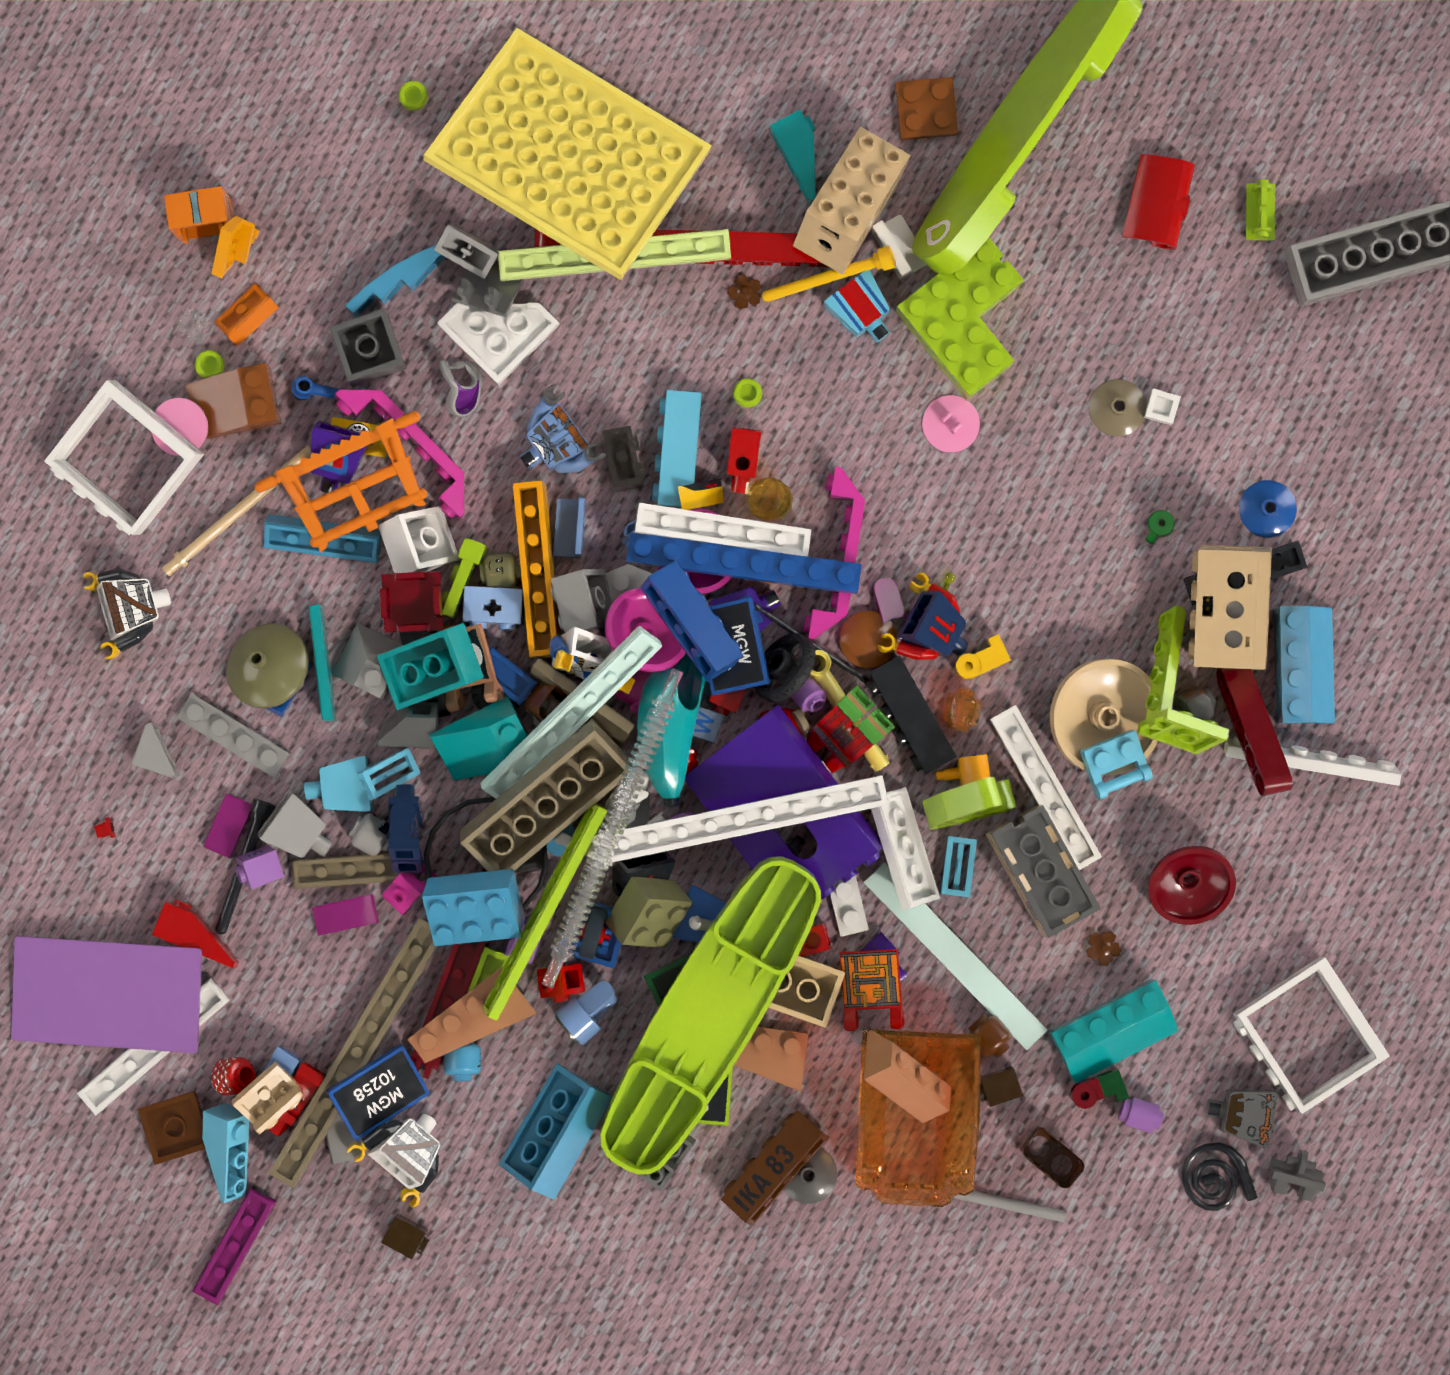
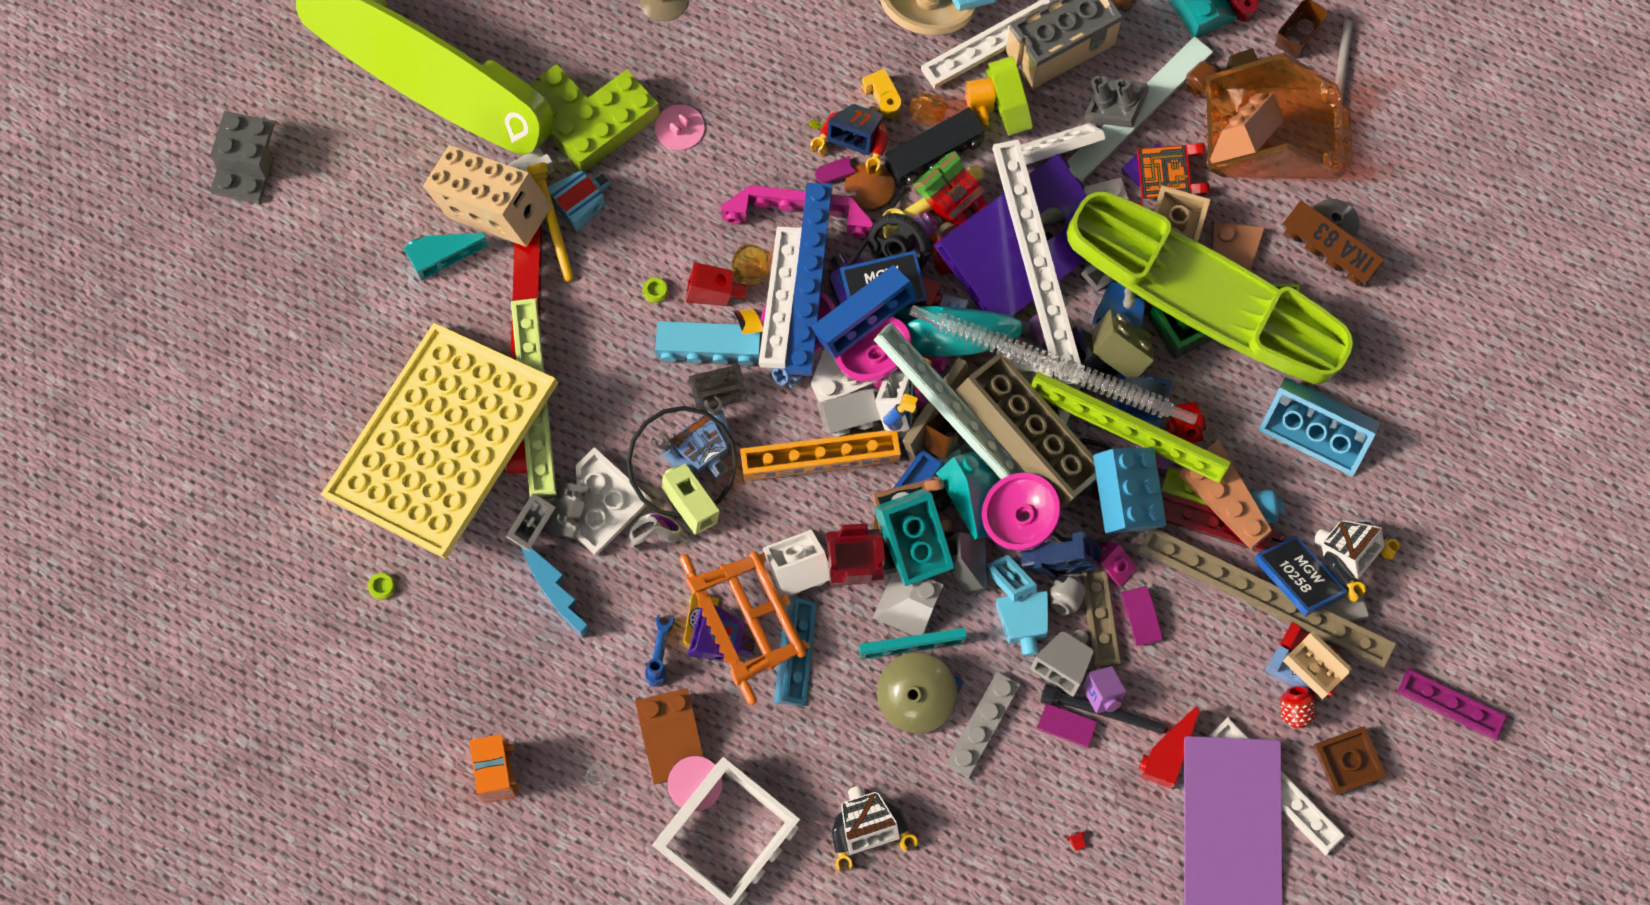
camera: 90 degrees left, 15 degrees down
(153, 753) = (1005, 794): light grey slope -> none
(180, 559) = (819, 779): tan bar -> none
(209, 364) = (634, 761): lime tile -> none
(227, 1149) = (1360, 710): medium azure slope -> none
(233, 244) = (523, 737): light orange slope -> none
(246, 314) = (586, 730): orange slope -> none
(356, 401) = (752, 531): dark pink slope -> none
(368, 347) = (619, 611): dark grey brick -> none
(406, 1237) = (1426, 549): dark brown brick -> none
(449, 768) = (1013, 499): none -> dark pink dish
(471, 554) = (807, 515): lime plate -> none
(494, 426) = (690, 498): none -> yellowish green brick
(500, 570) = (822, 489): olive head -> none
(509, 599) = (855, 479): light blue brick -> none
(569, 528) = (778, 429): medium blue panel -> none
(580, 1015) = (1216, 406): medium blue piece -> none
(584, 405) = (654, 417): none -> black piece
(744, 292) = (565, 296): reddish brown plant -> none
(926, 108) = (403, 152): dark orange plate -> none
(947, 862) = (1059, 113): medium azure tile -> none
(959, 929) = (1116, 101): none -> dark grey plate

